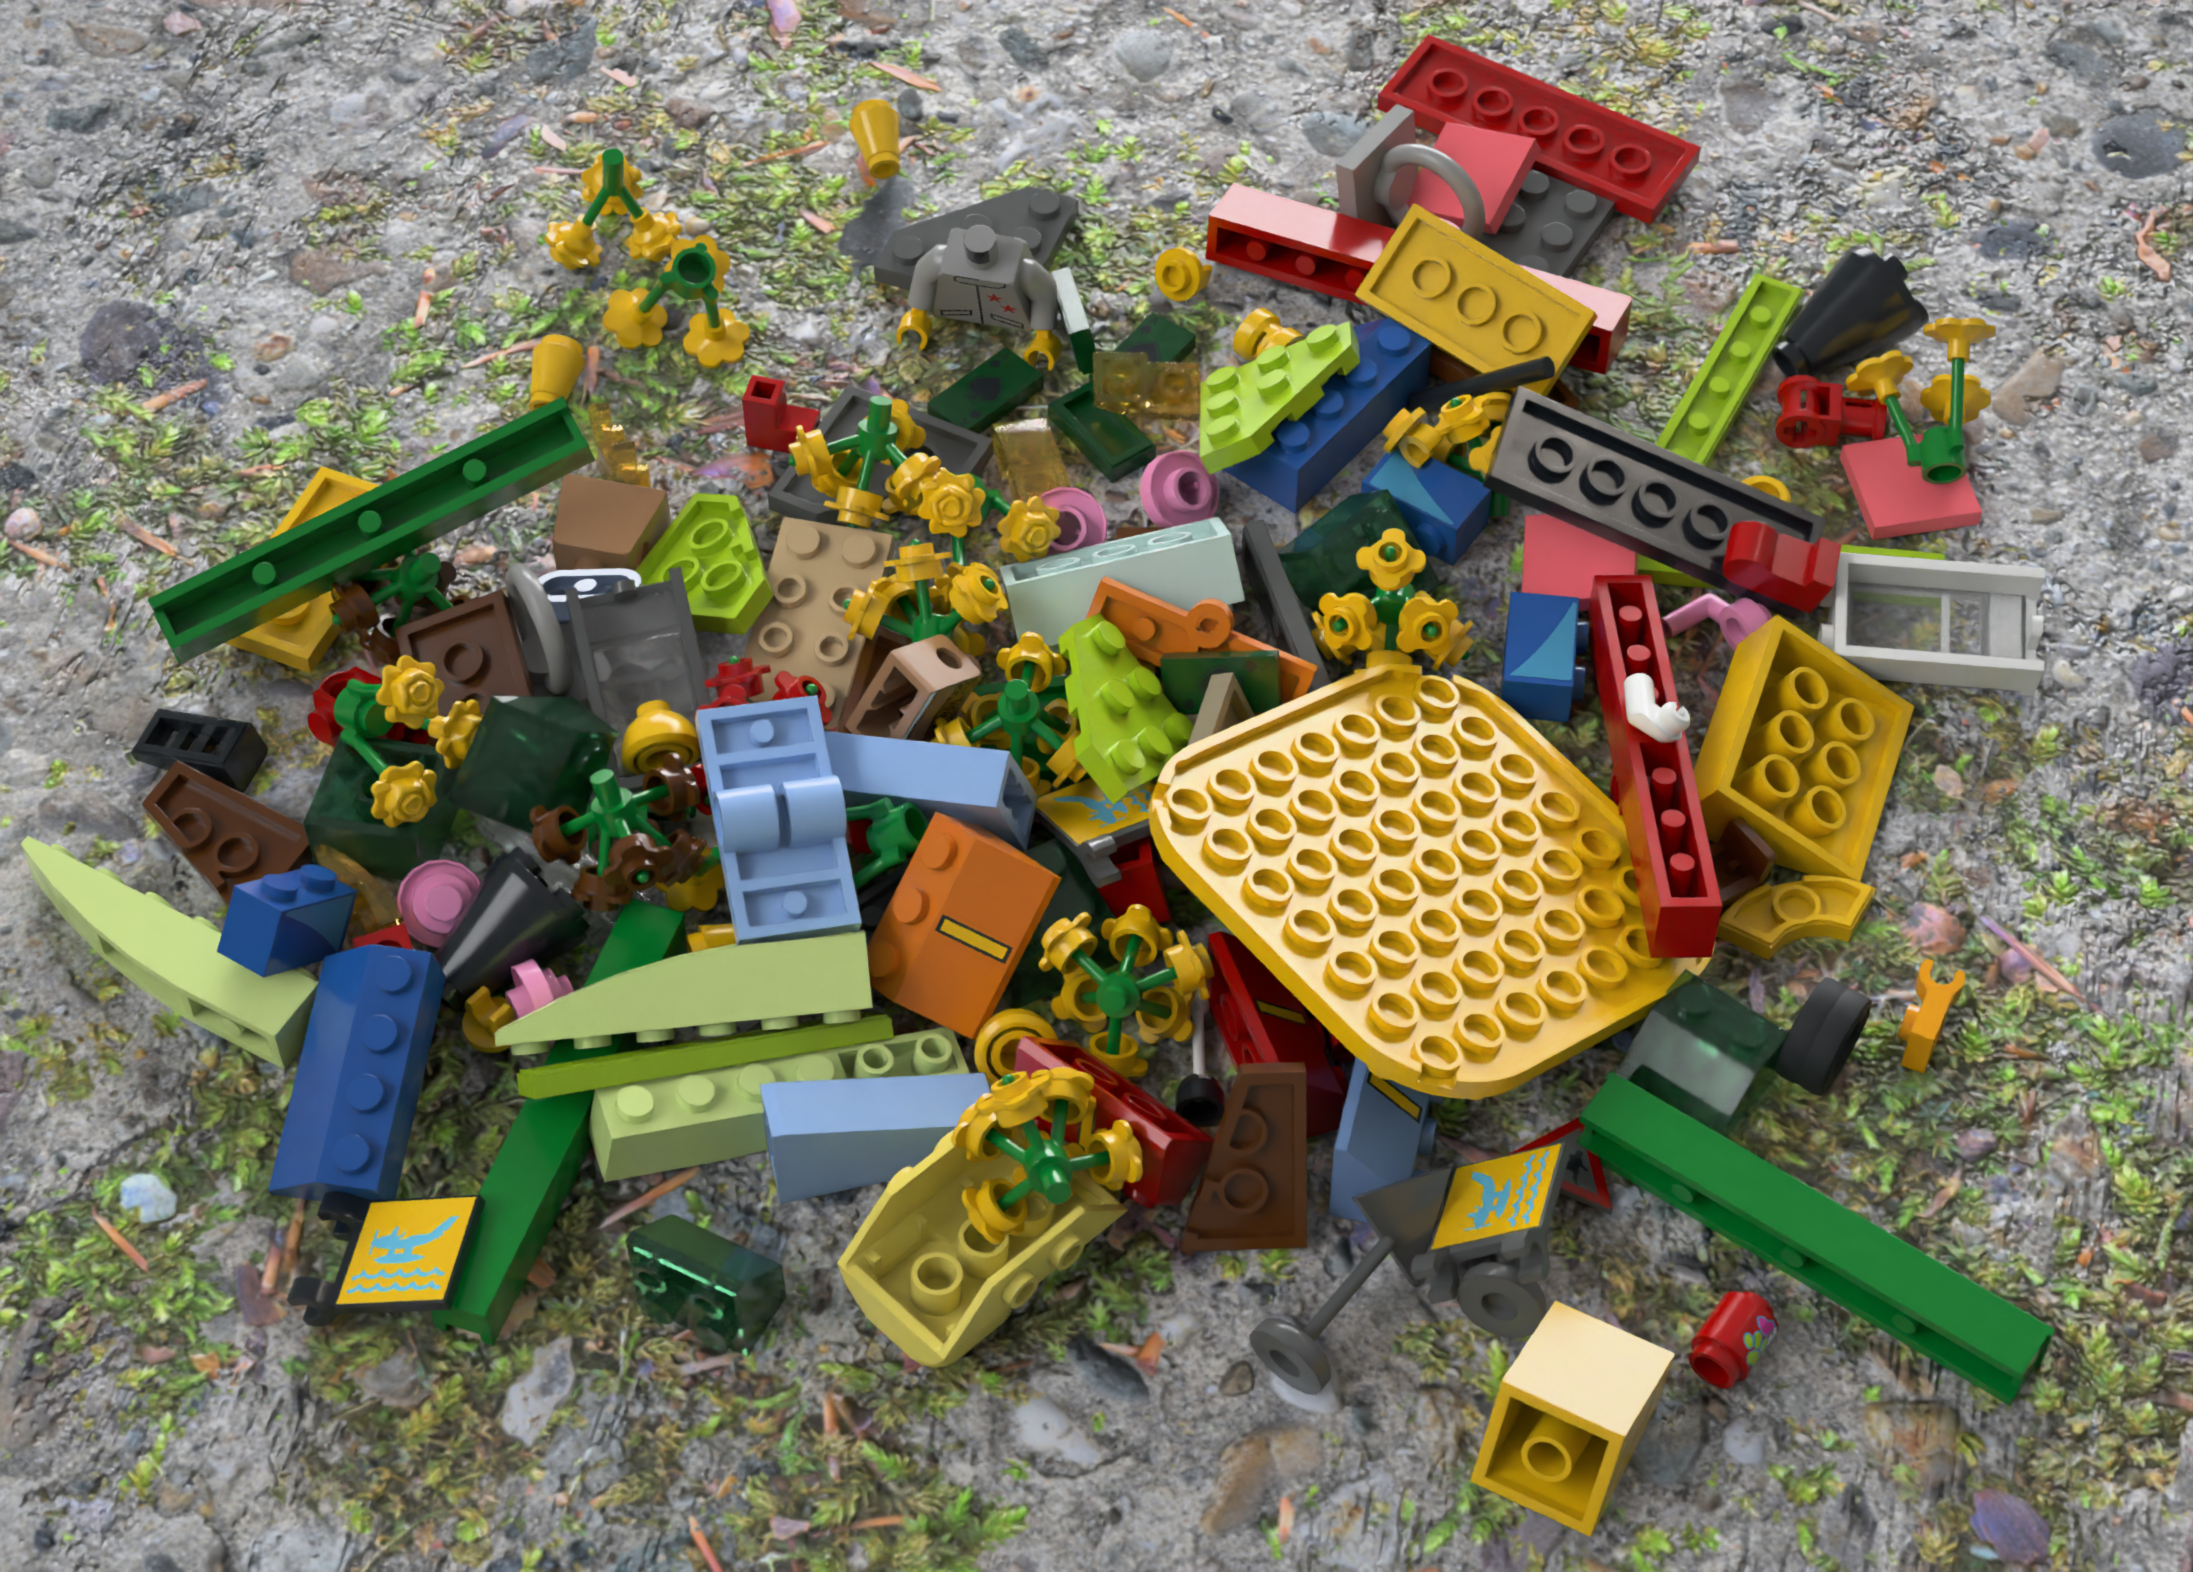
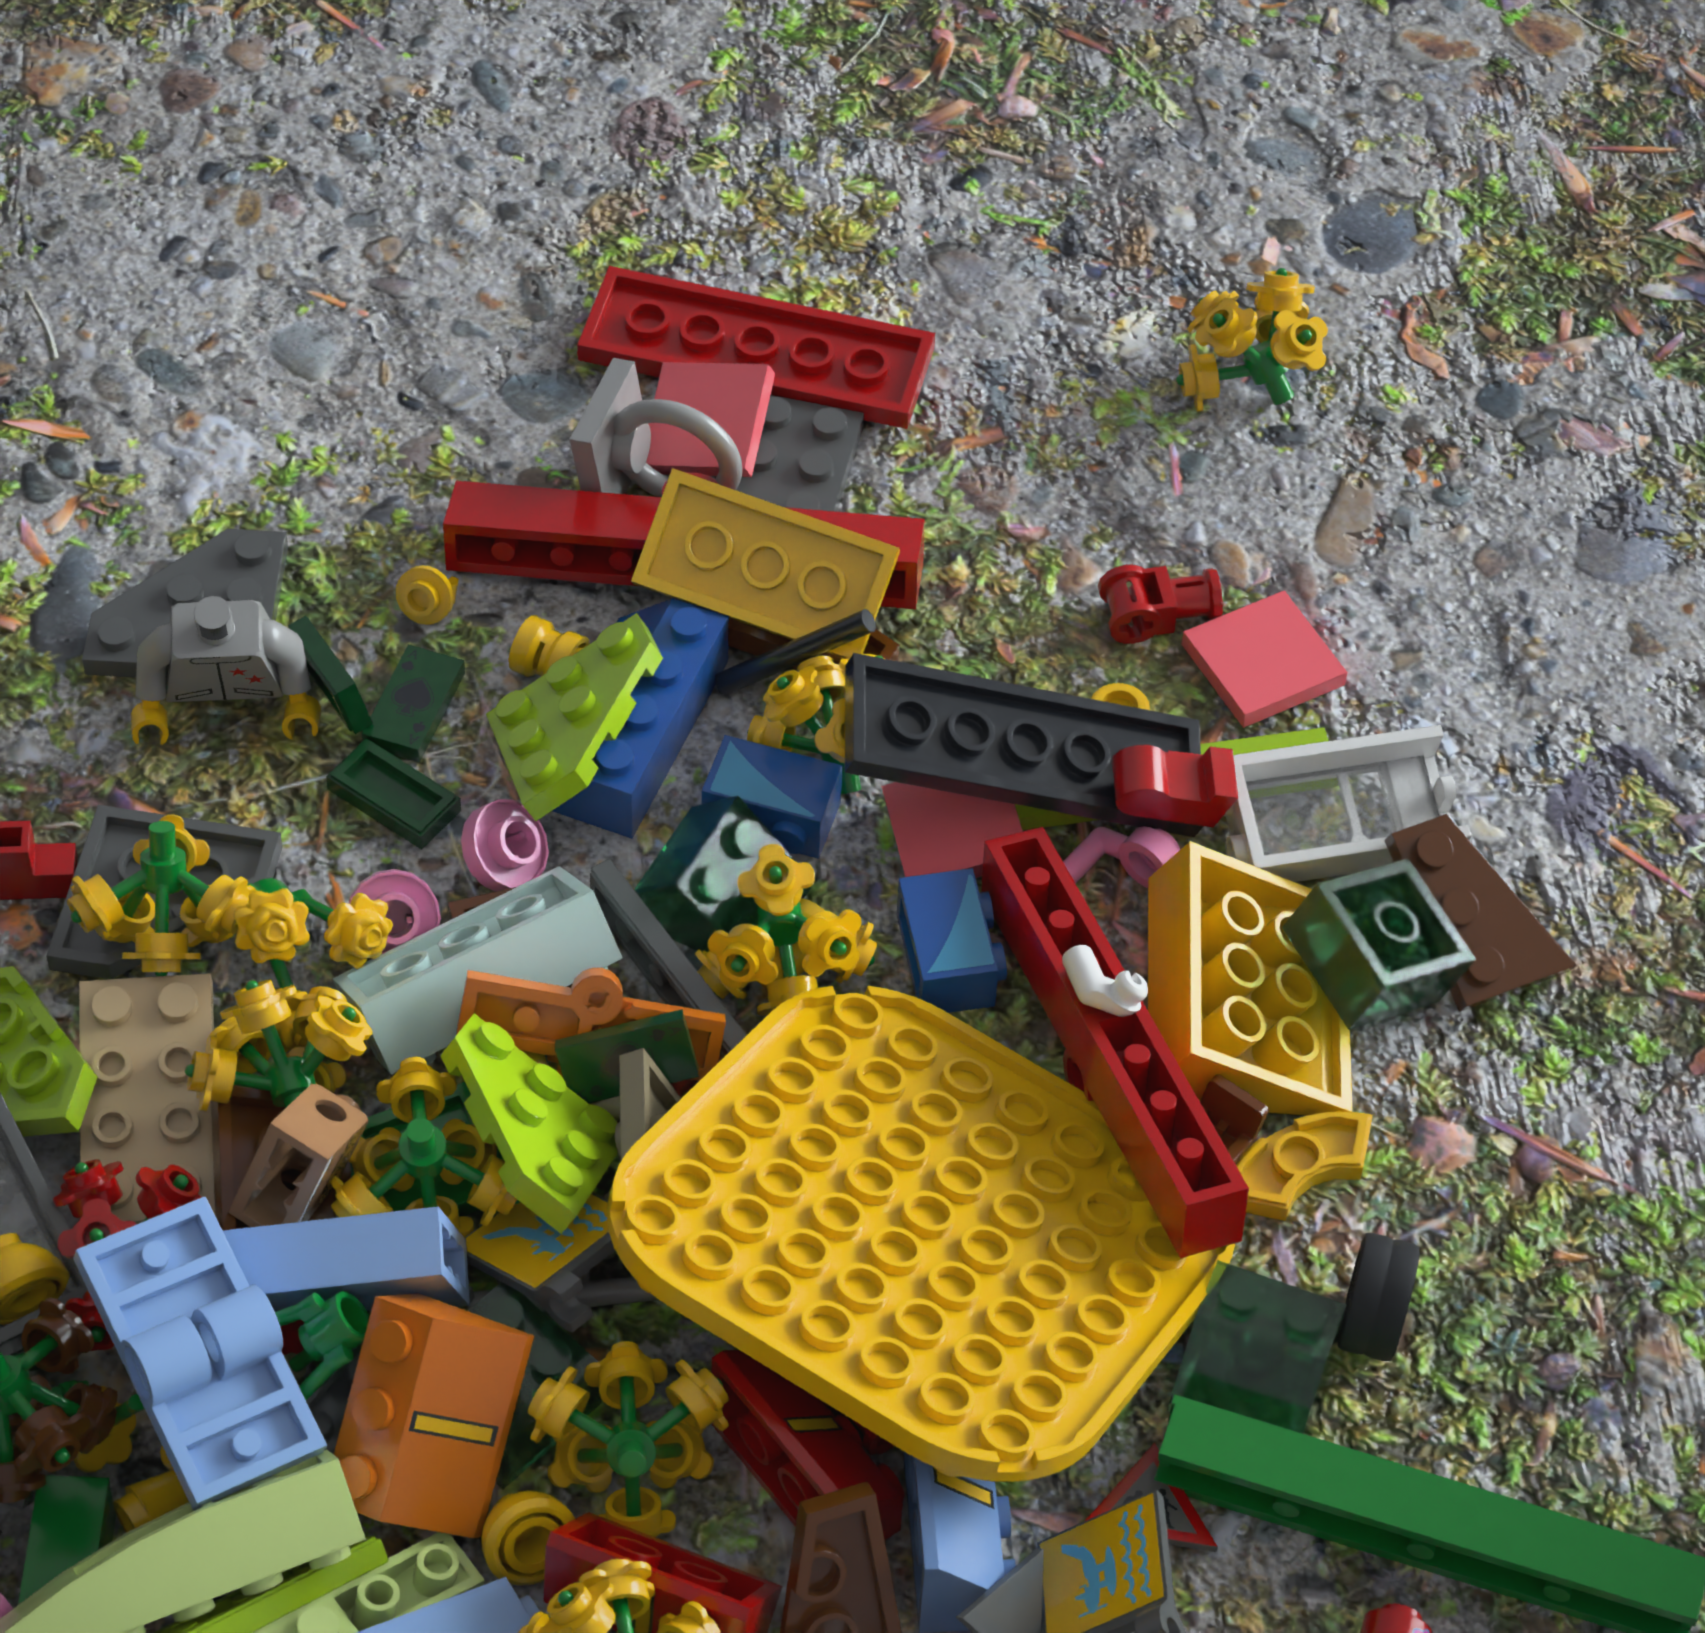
camera: 20 degrees left, 0 degrees up
(877, 136) = (39, 507): yellow cone -> none
(987, 392) = (253, 778): dark green tile -> none
(1028, 457) = (329, 846): clear yellow slope -> none
(1140, 883) = (612, 1314): red brick -> none
(1146, 389) = (431, 735): clear yellow slope -> none
(1198, 1085) = (742, 1535): black hinge -> none
(1411, 436) = (745, 730): yellow plate -> none
(1731, 370) = (1041, 575): lime tile -> none
(1850, 315) = (1150, 487): black cone -> none
(1924, 1024) = (1472, 1253): light orange plate -> none
(1925, 741) = (1378, 943): none -> clear green brick
(1950, 398) = (1277, 556): plant -> none
(1963, 189) = (1279, 325): none -> yellow plant
(2022, 741) = (1491, 919): none -> reddish brown wing

